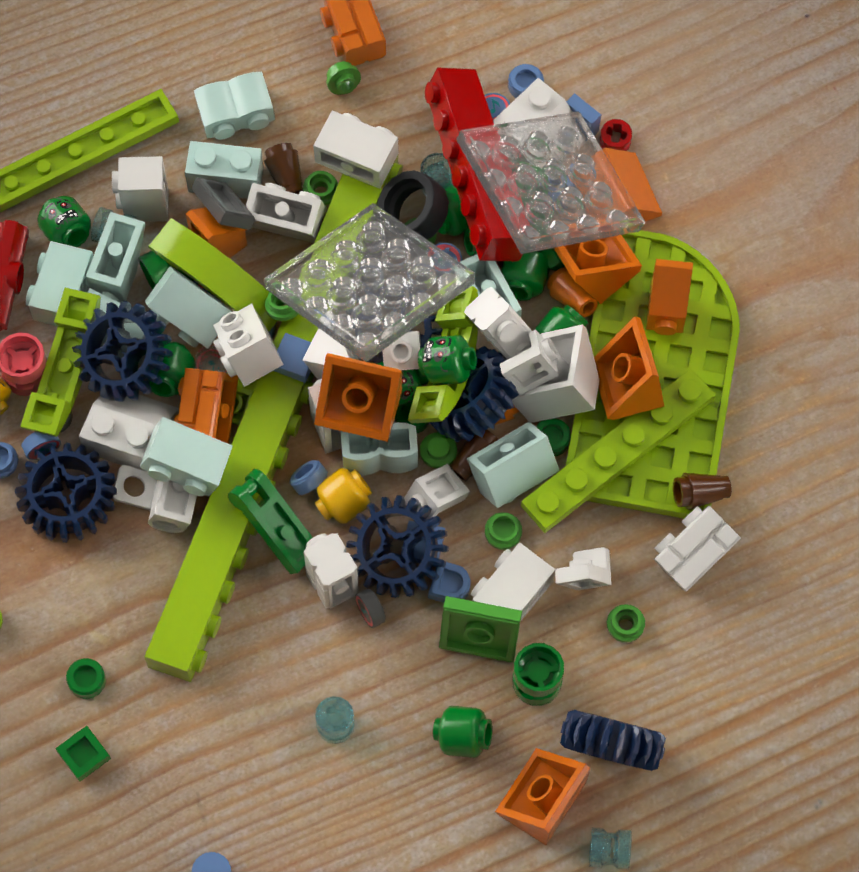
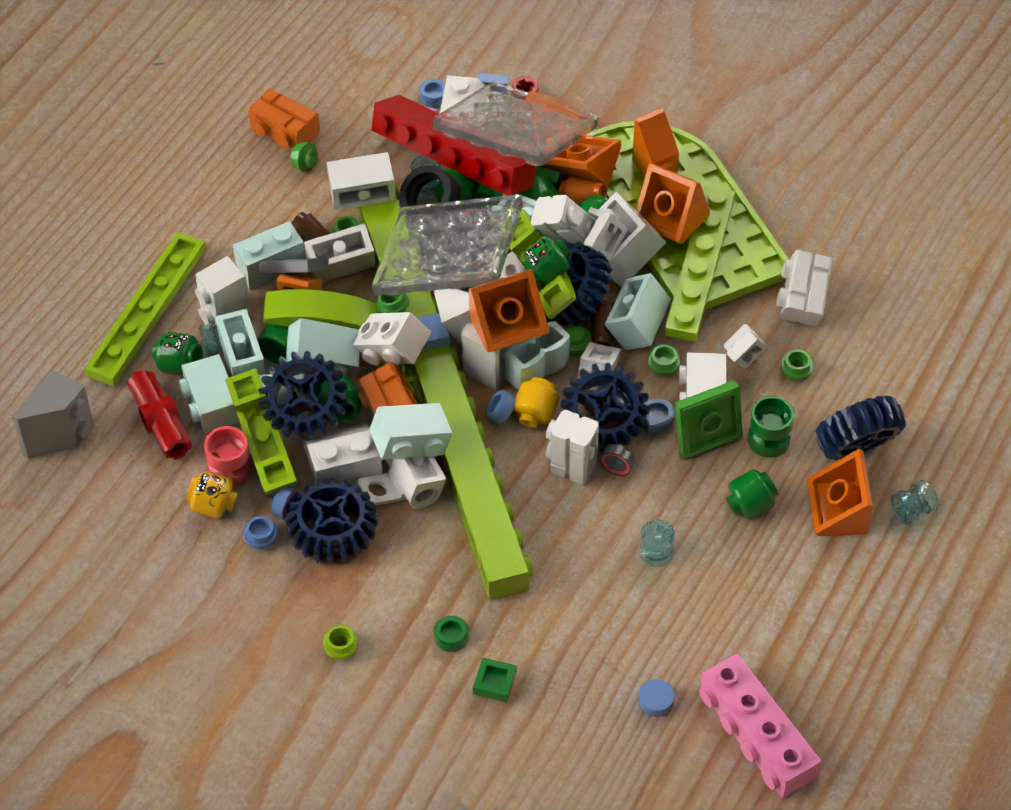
camera: 35 degrees left, 15 degrees down
(234, 105) = (240, 213): light aqua brick -> none
(272, 519) = (504, 441): green plate -> none
(700, 489) = (773, 252): reddish brown cone -> none

